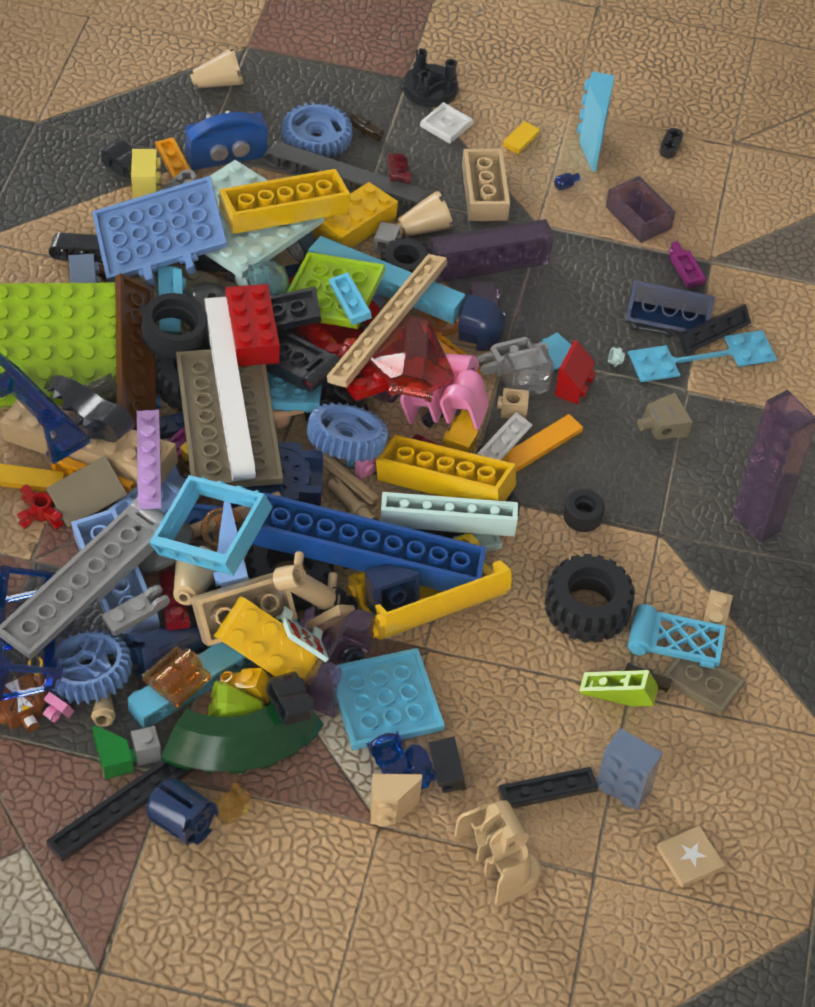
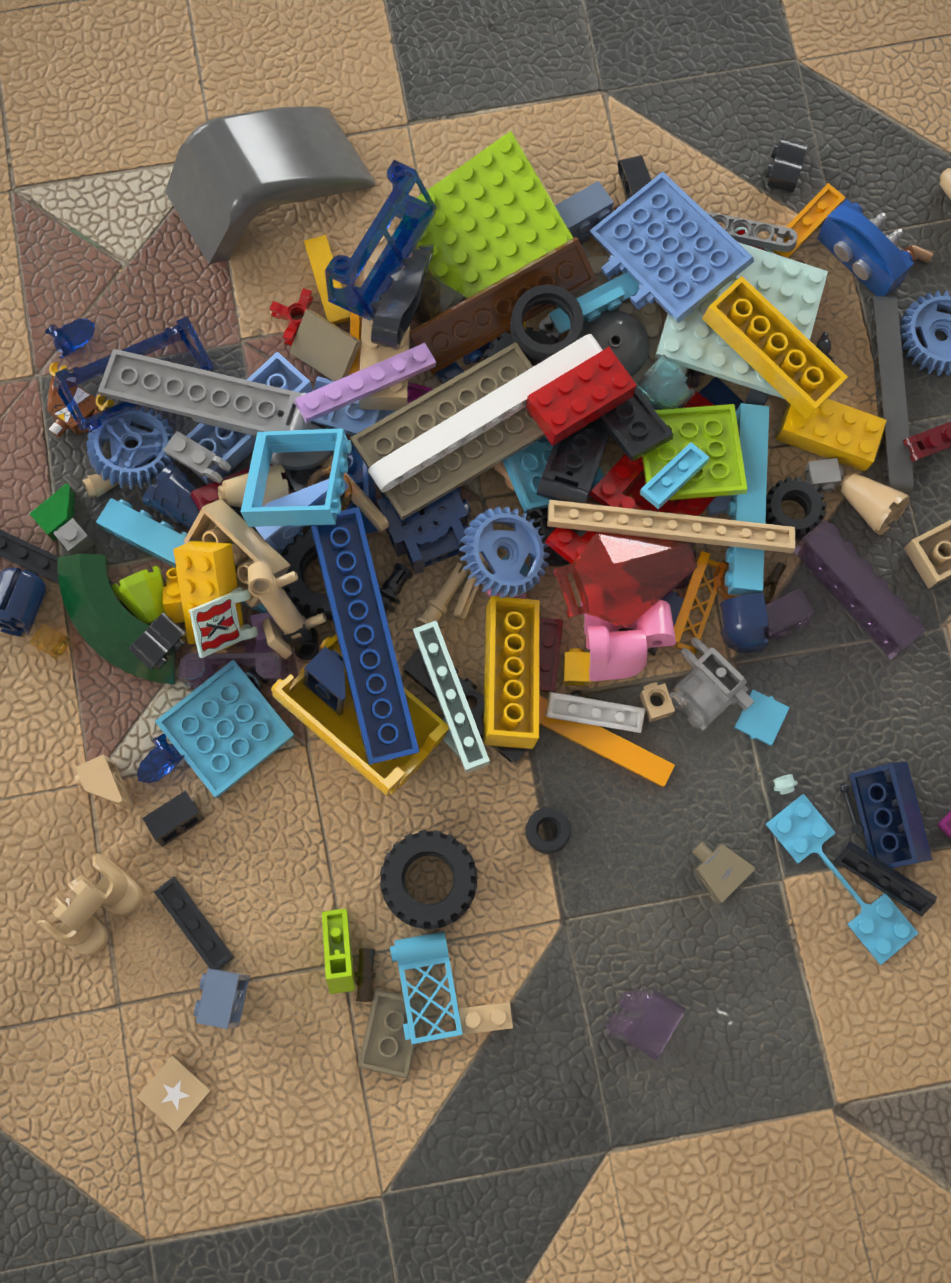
camera: 70 degrees right, 25 degrees up
(56, 707) = (79, 442): bright pink tile -> none
(144, 172) = (765, 196): light yellow brick -> none
(177, 676) = (144, 529): clear orange plate -> none
(419, 763) = (158, 792): clear blue piece -> none
(575, 374) = (727, 751): red slope -> none

